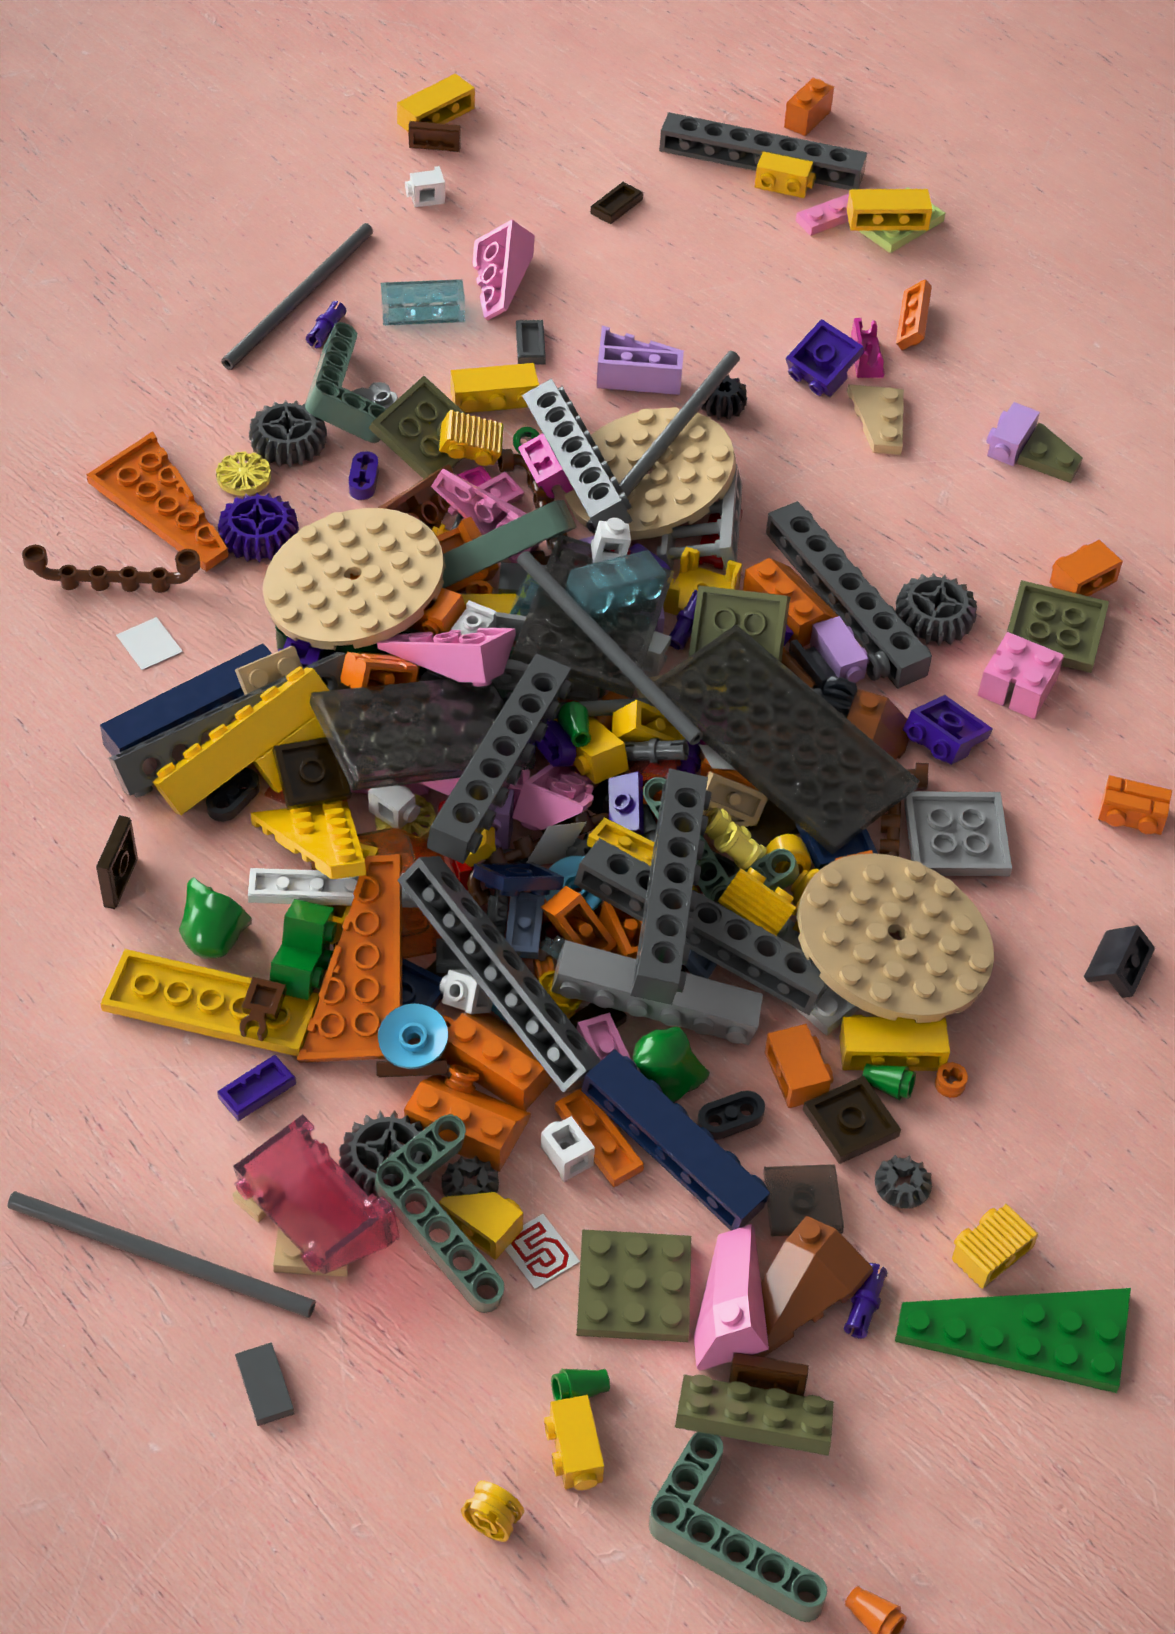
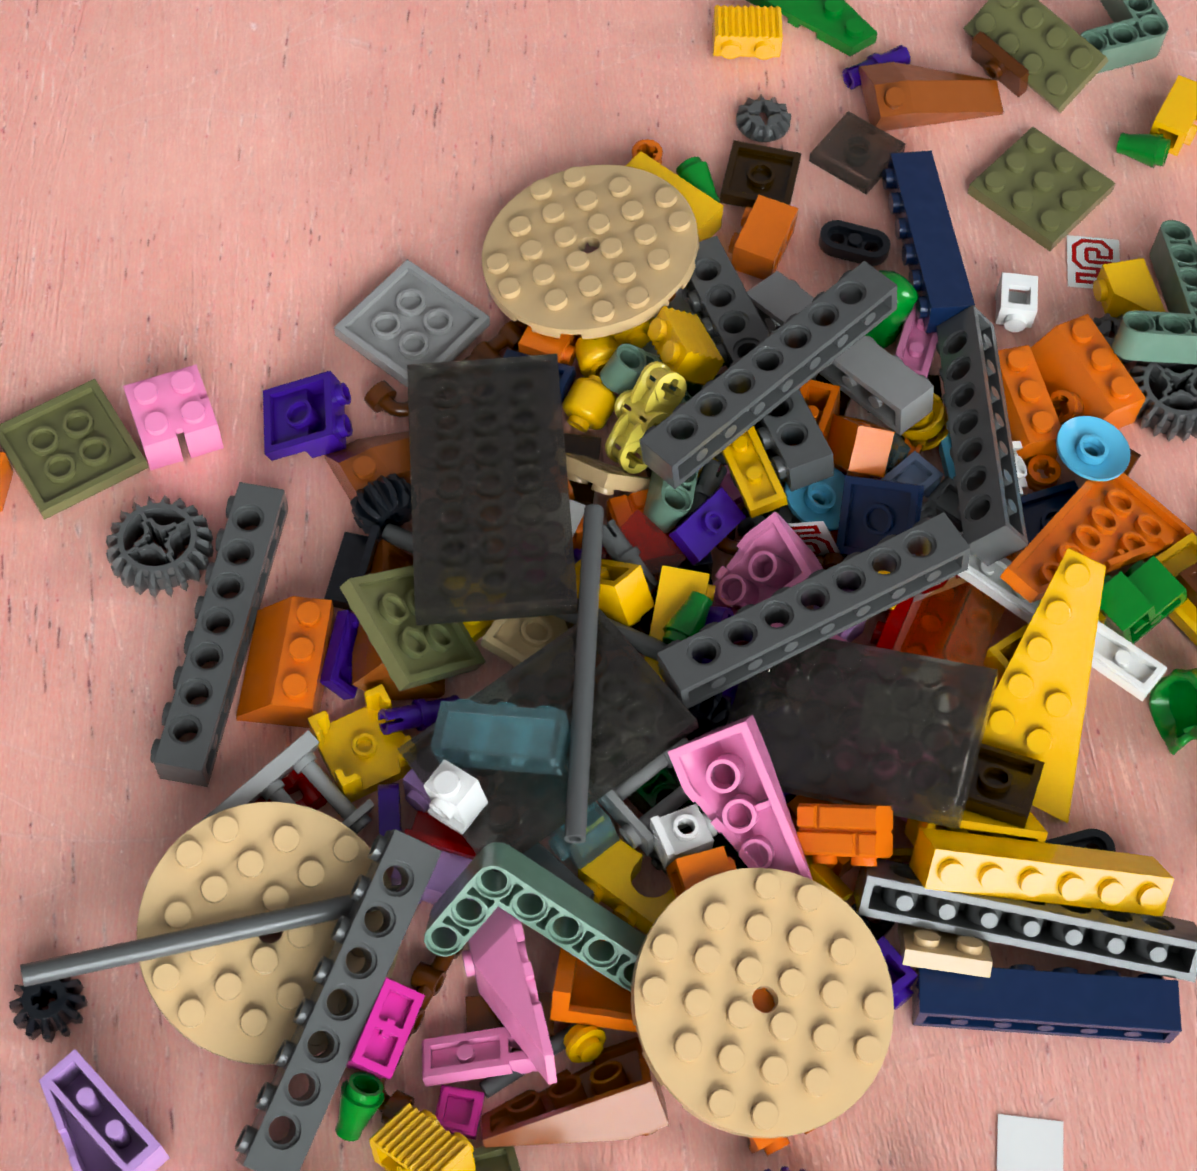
camera: 140 degrees left, 10 degrees up
(612, 1151) = (983, 278): orange plate -> none
(732, 1302) = (989, 115): bright pink wedge -> none
(840, 649) = (309, 563): lavender brick -> none
(878, 666) = (289, 530): dark grey bush -> none
(1121, 959) = (408, 145): black panel -> none
(1135, 805) = (233, 239): orange brick -> none

